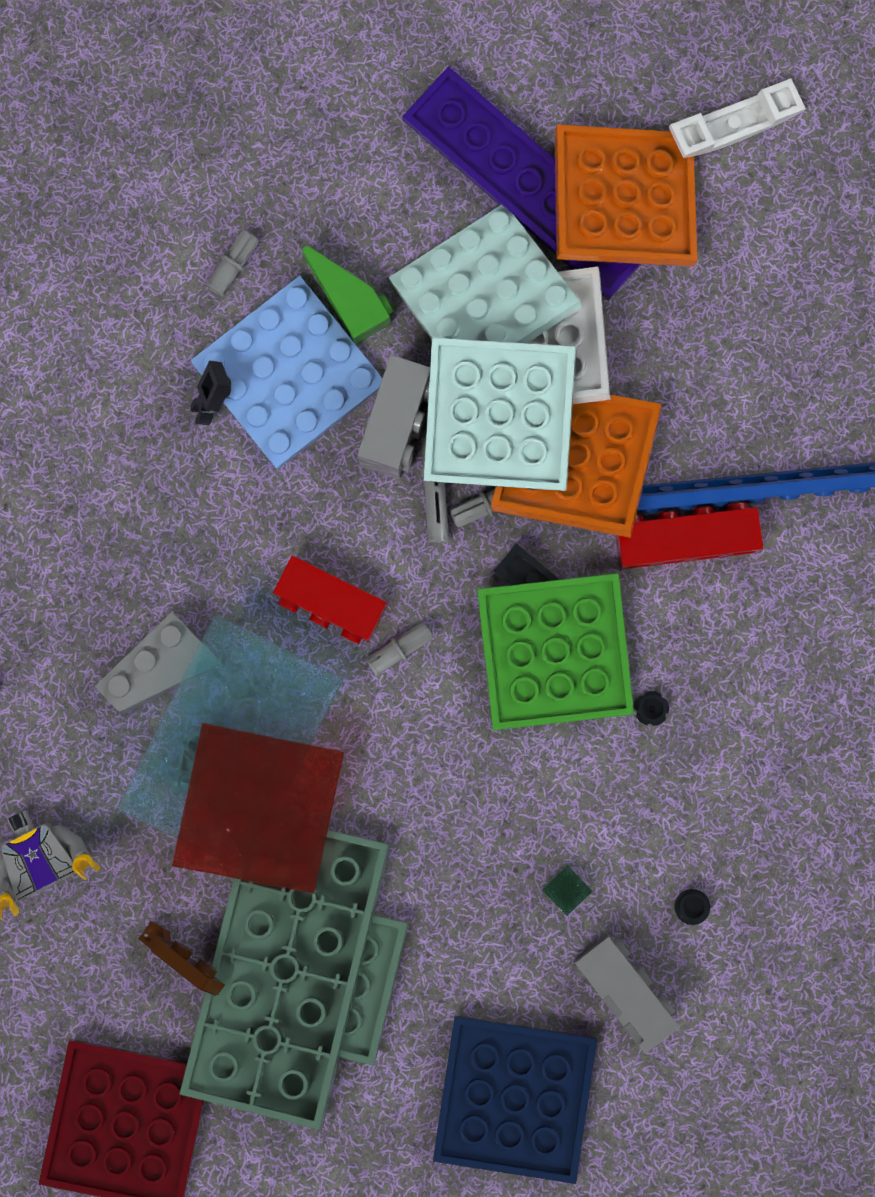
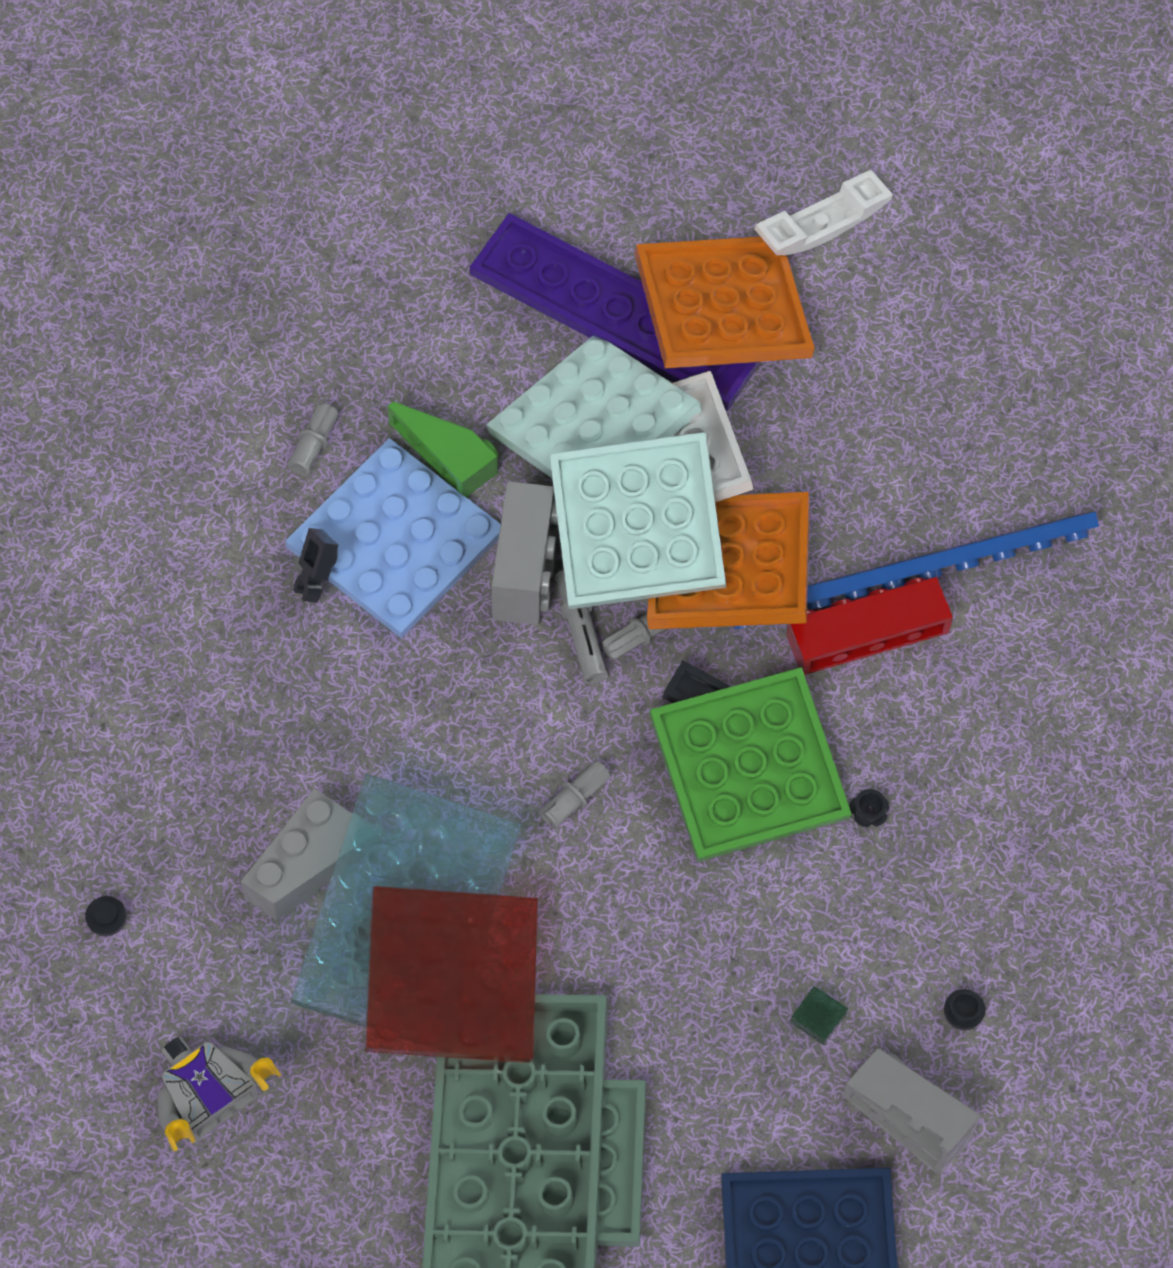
camera: 15 degrees left, 20 degrees down
(178, 957) = (394, 1166): reddish brown hinge -> none
(329, 600) = (487, 755): red brick -> none

